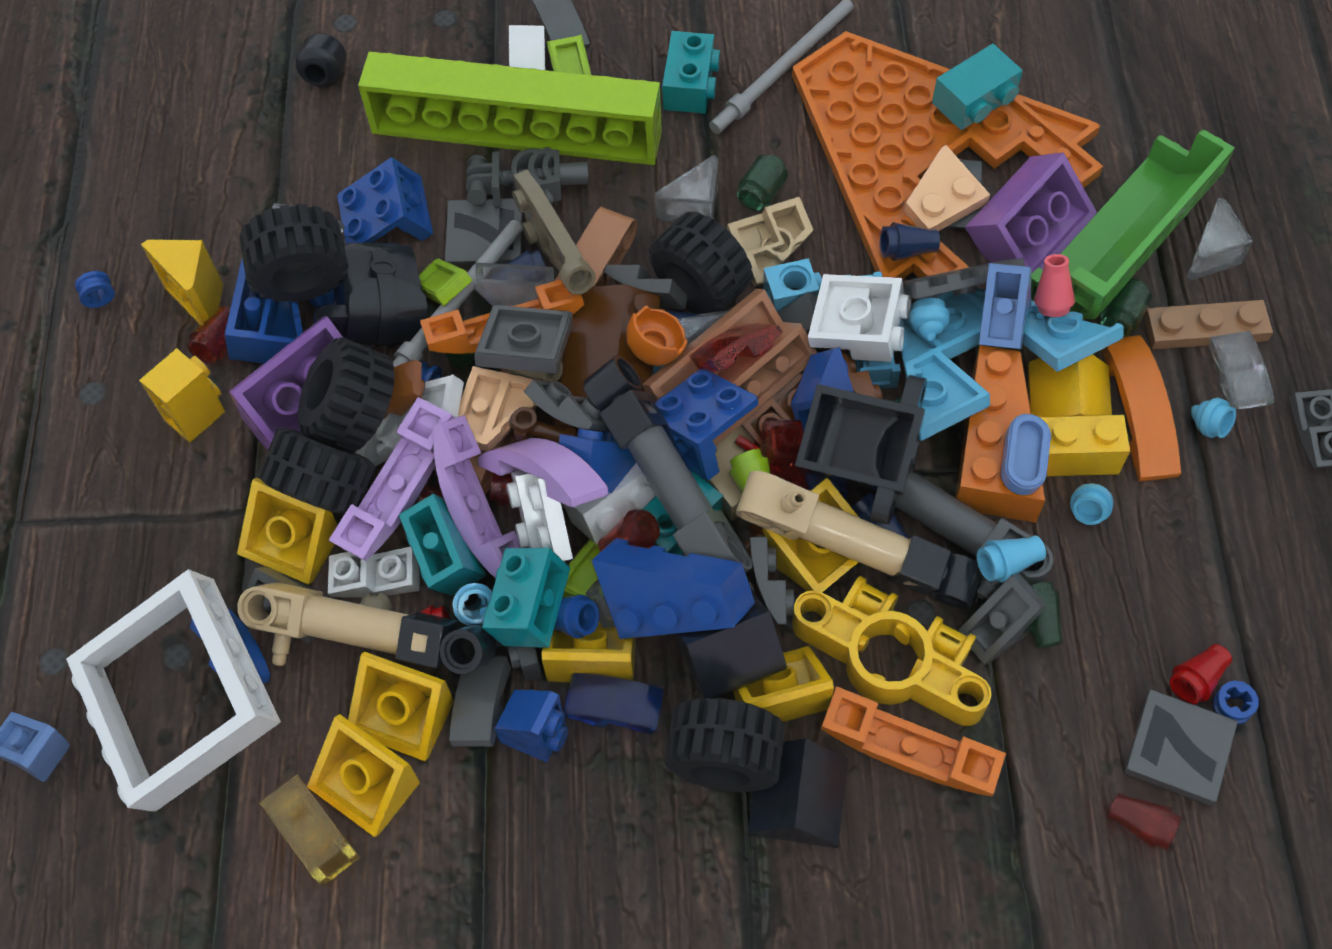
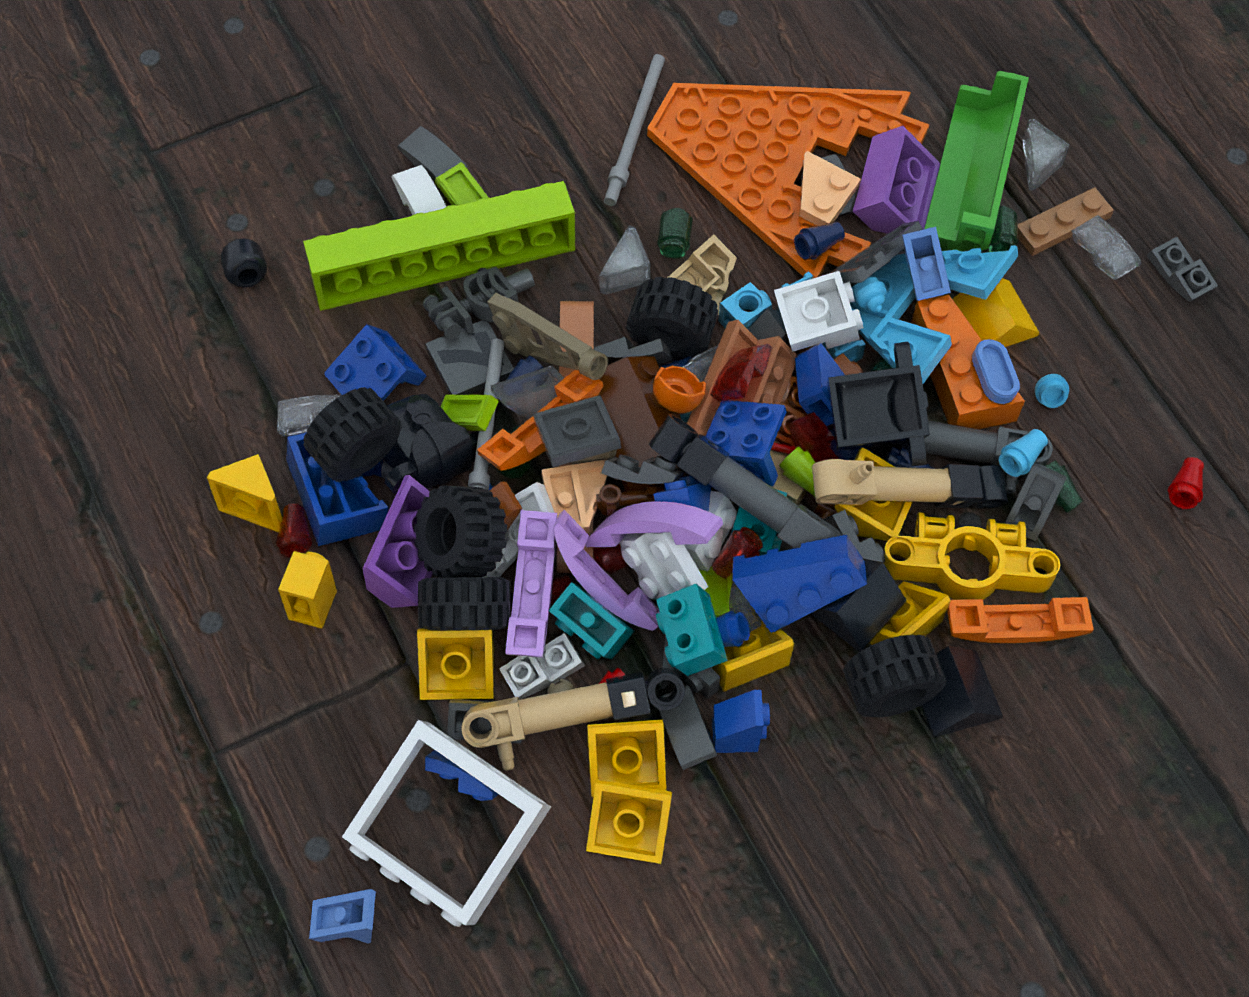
camera: 30 degrees left, 0 degrees up
(94, 289) = (164, 534): blue bush -> none
(309, 830) = (614, 878): clear yellow brick -> none
(473, 613) = (642, 654): medium azure cone -> none
(614, 701) = (789, 682): clear blue slope -> none
(689, 72) = (565, 159): teal brick -> none
(977, 87) = (808, 95): teal brick -> none
(1055, 287) = (954, 237): coral cone -> none
(1087, 445) = (1032, 345): yellow brick -> none
(1146, 407) = (1056, 302): orange slope -> none
(1146, 820) = (1203, 603): clear red cone -> none
(1181, 747) = (1199, 542): dark grey tile -> none
(1214, 417) = (1103, 291): medium azure plate -> none
(1236, 690) = (1216, 485): blue bush -> none

